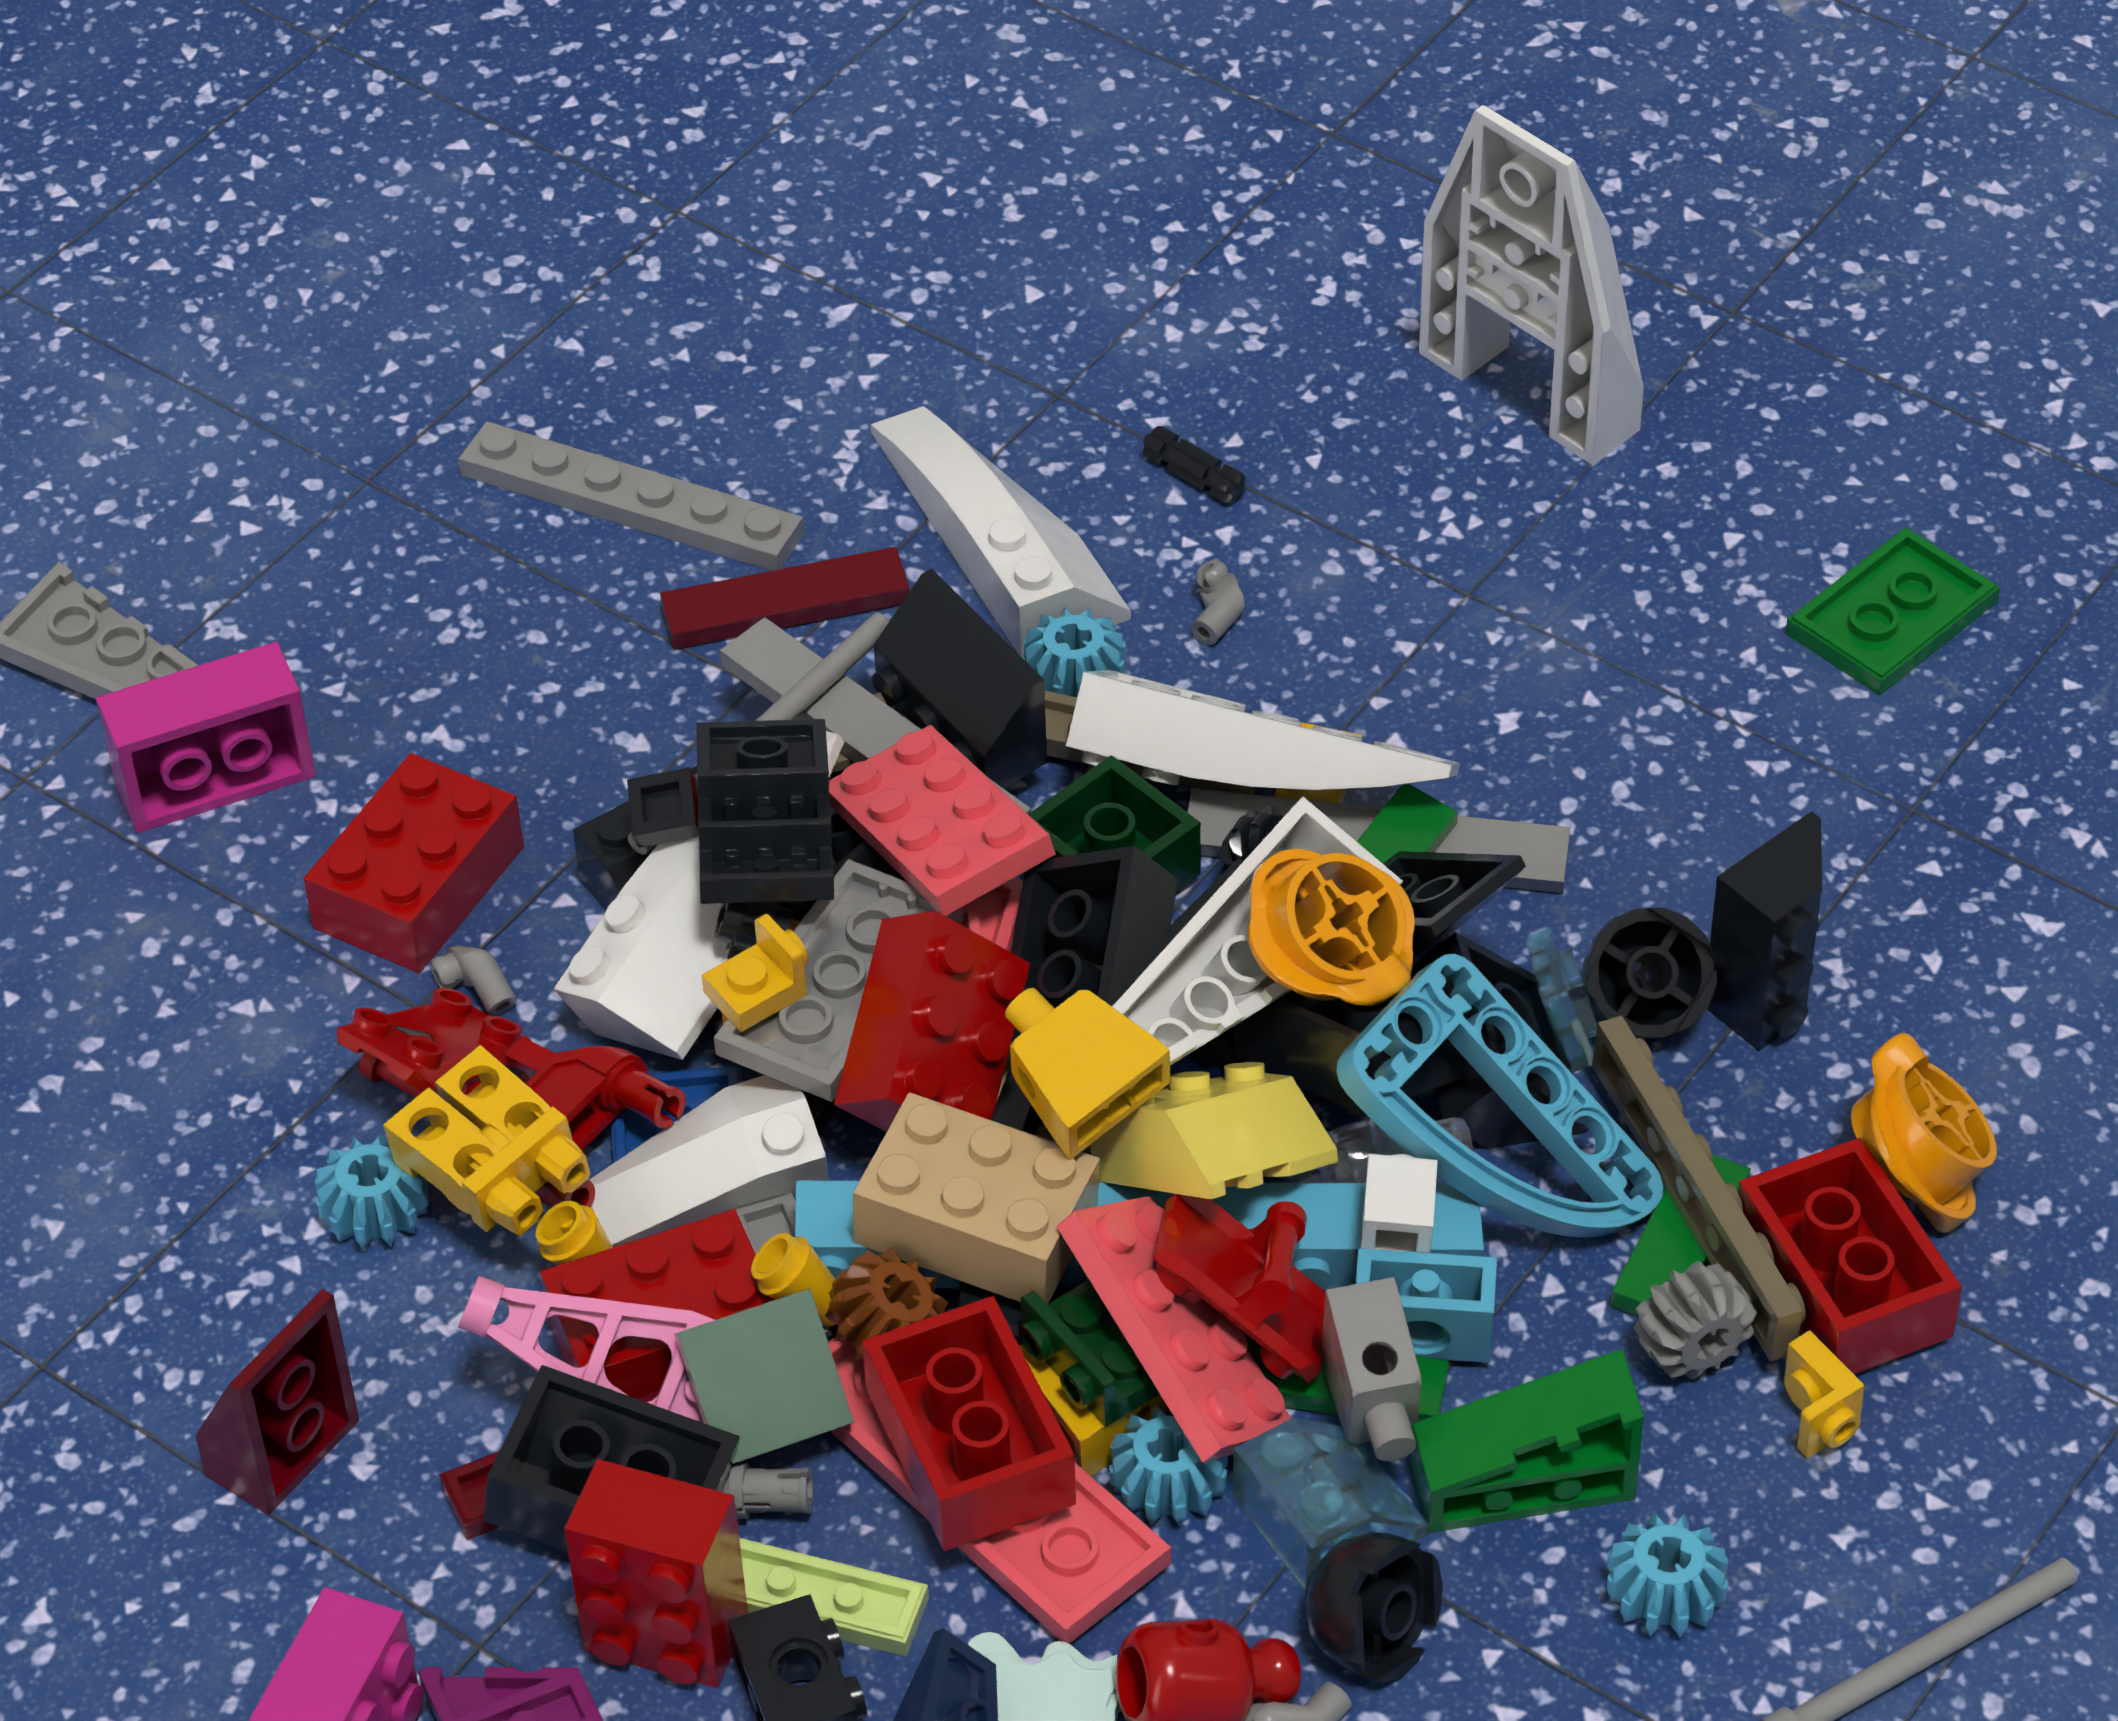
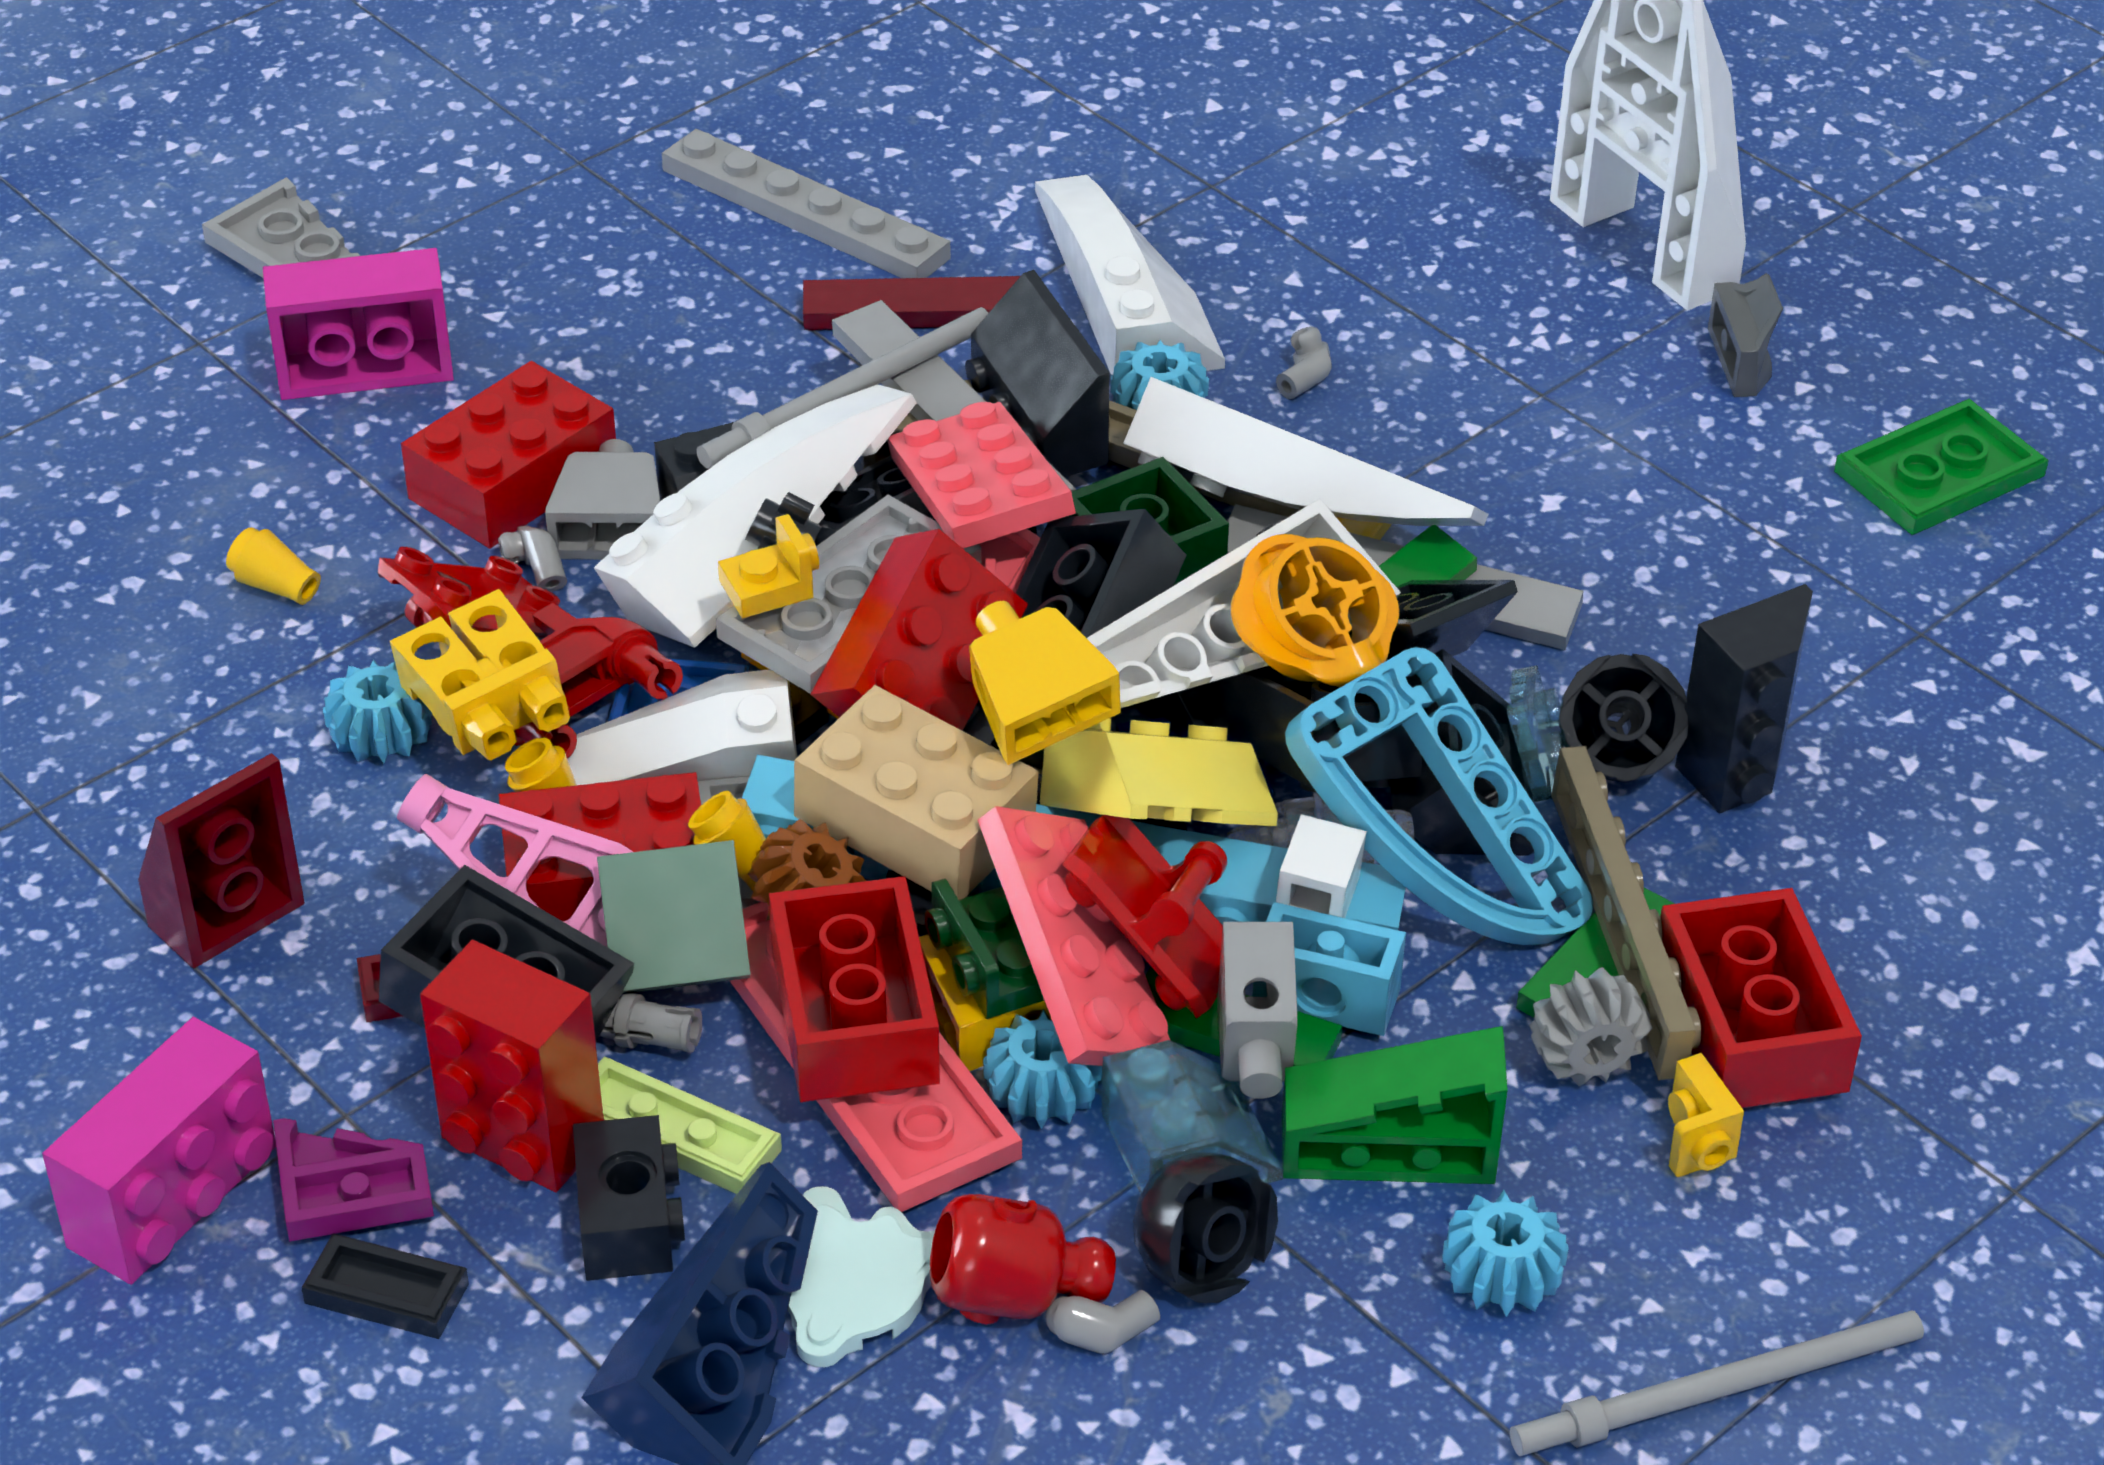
camera: 10 degrees right, 5 degrees down
(201, 1041) = (269, 565): none -> yellow cone
(536, 902) = (601, 499): none -> light grey torso
(663, 807) = (731, 424): black plate -> none
(764, 811) = (817, 438): black slope -> none
(1194, 465) = (1317, 254): black axle -> none
(1661, 486) = (1741, 329): none -> dark grey slope
(1924, 1132) = (1859, 898): light orange piece -> none

